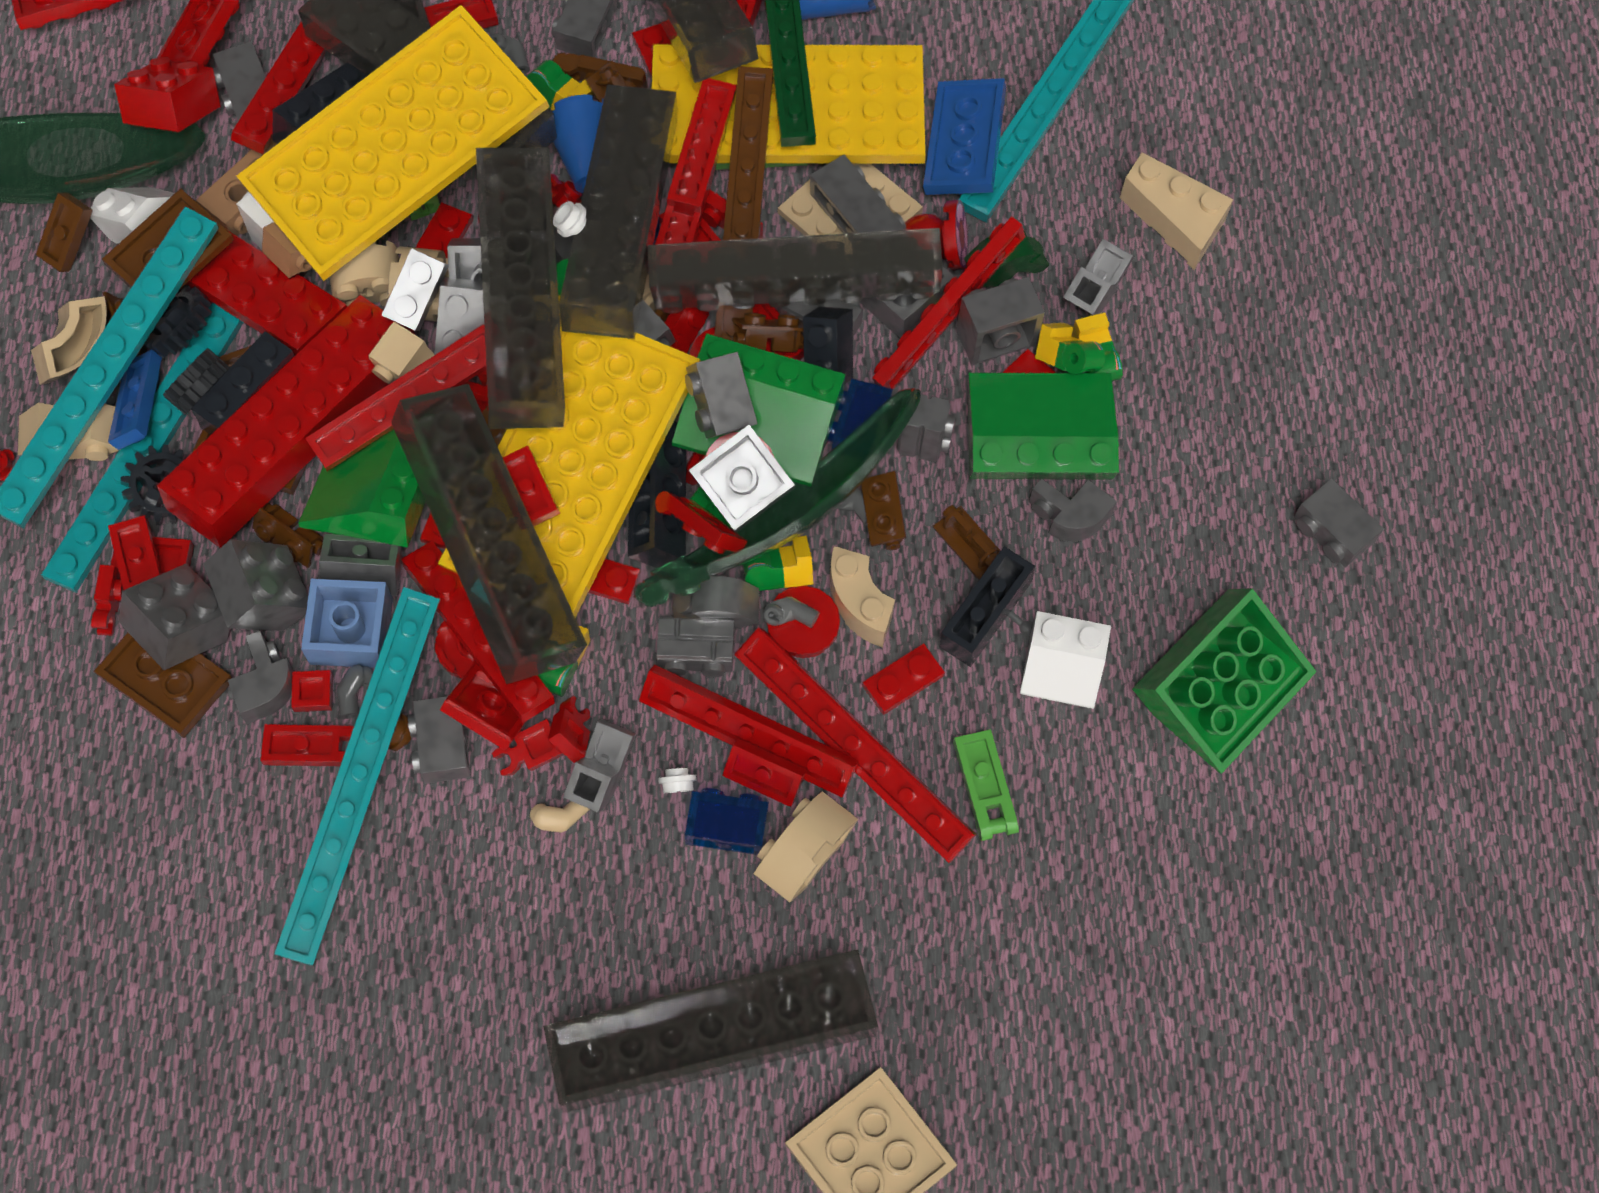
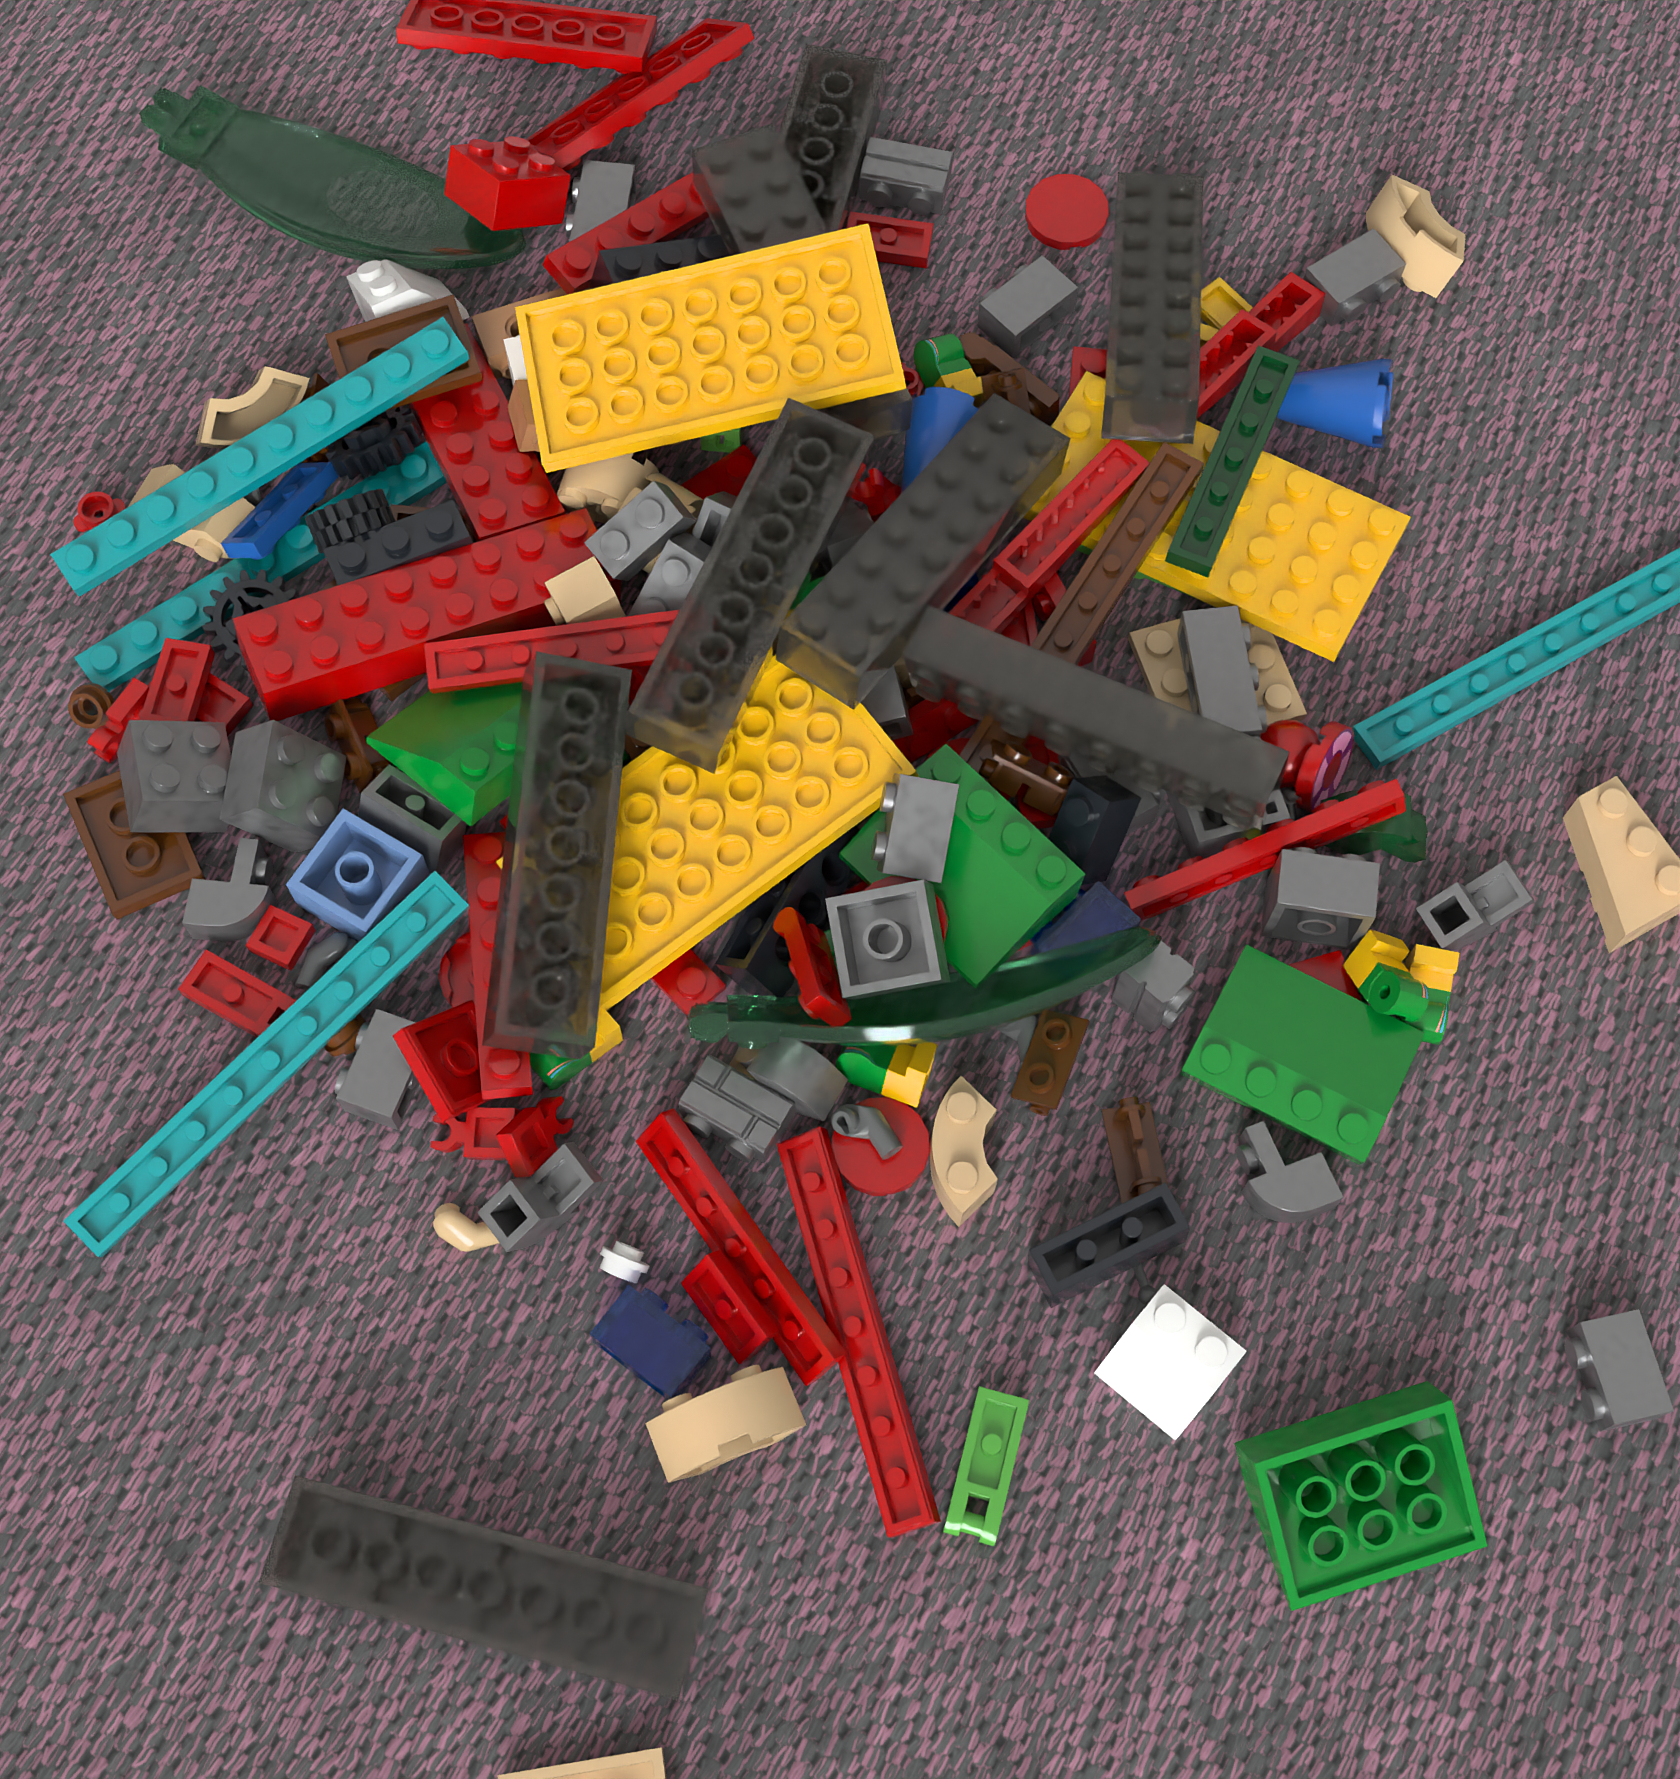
camera: 30 degrees right, 0 degrees up
(64, 232) = (313, 287): reddish brown plate -> none
(69, 608) = (82, 710): none -> reddish brown plate
(514, 50) = (922, 304): dark grey arm -> none
(531, 485) = (639, 824): red plate -> none
(570, 219) = (850, 531): white plate -> none
(903, 679) = (961, 1279): red plate -> none
(965, 137) = (1404, 653): blue plate -> none

